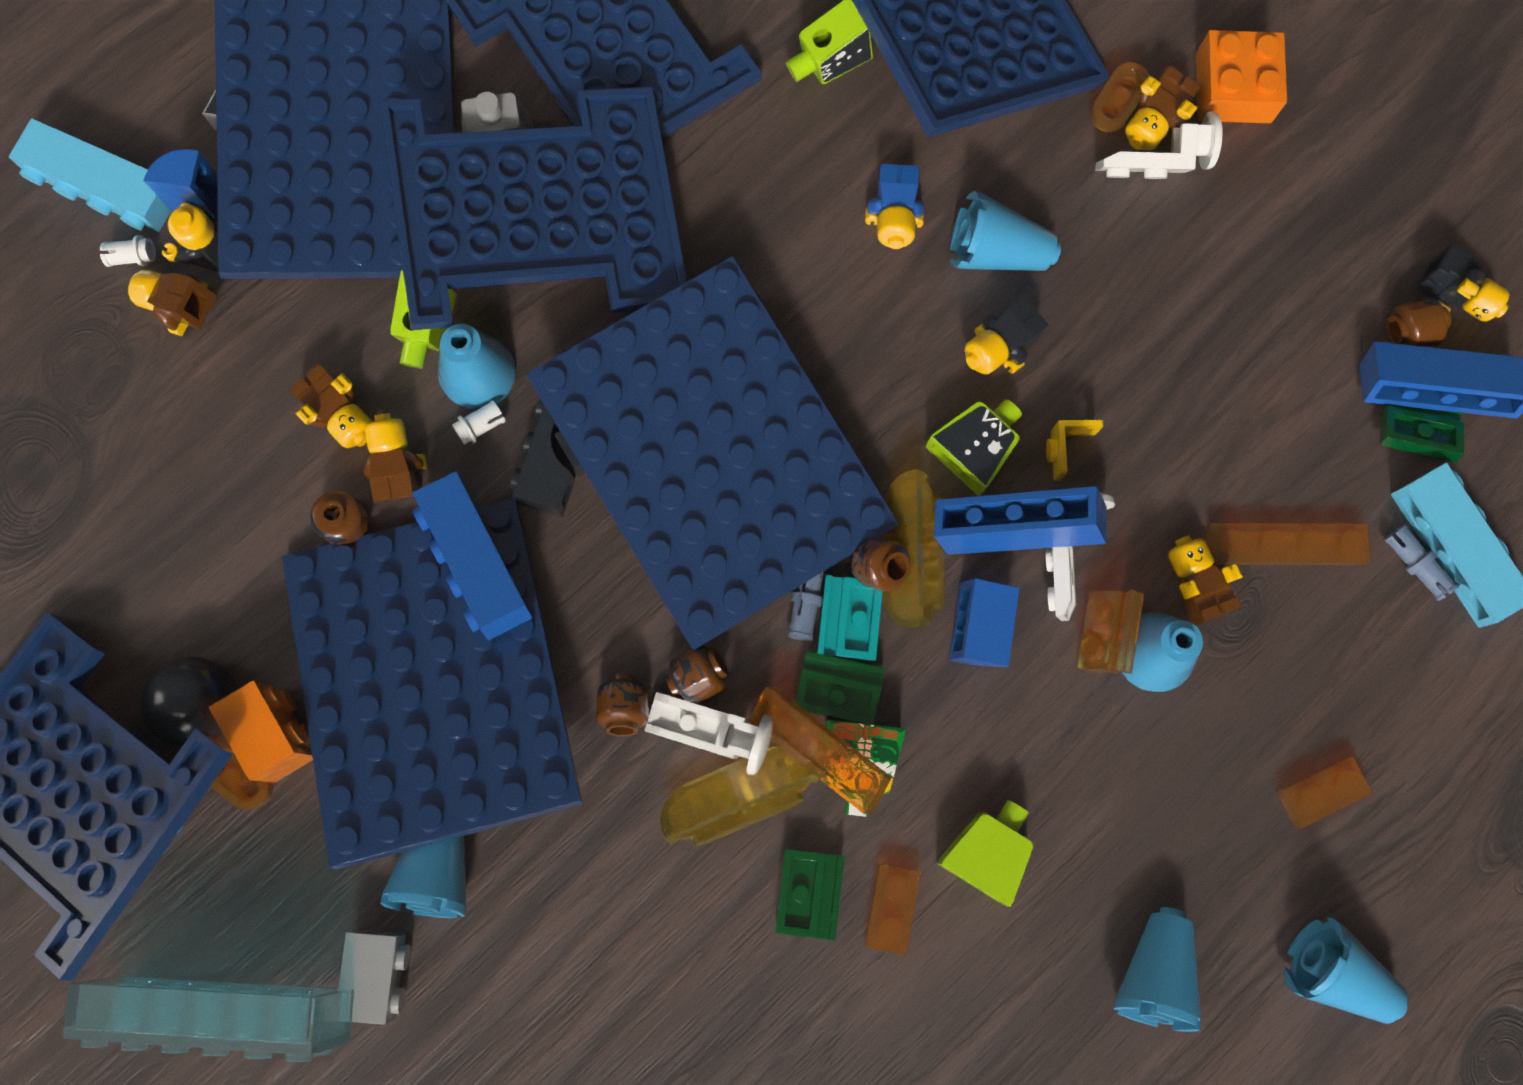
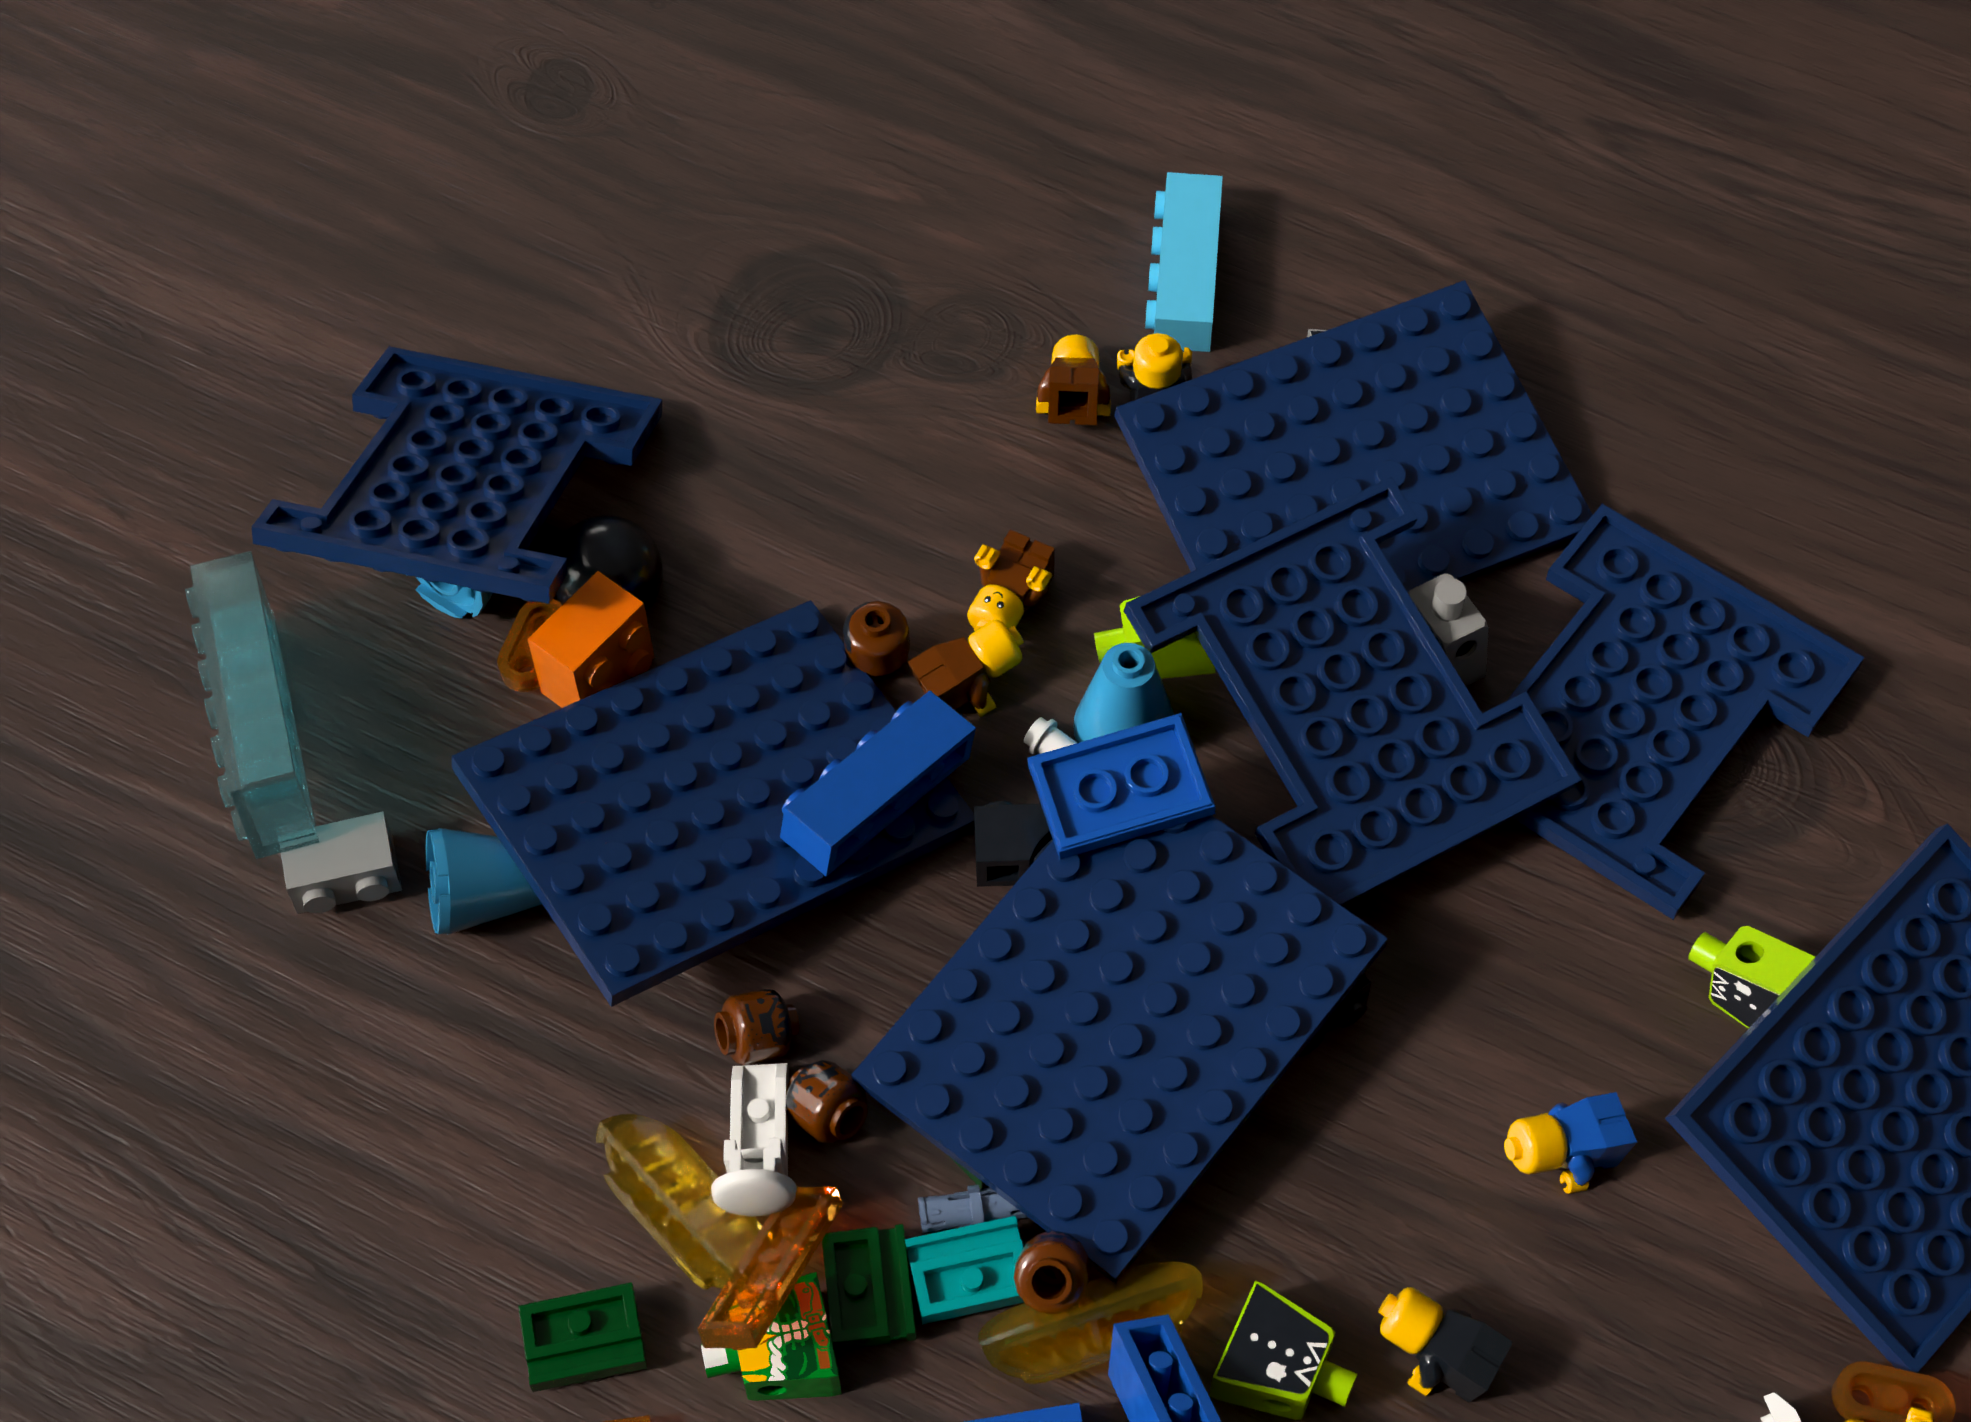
camera: 75 degrees right, 20 degrees down
(127, 252) = (1116, 330): white pin -> none
(184, 178) = (1214, 333): blue brick -> none
(554, 385) = (1121, 786): none -> blue tile
(1000, 238) = (1587, 1293): dark azure cone -> none

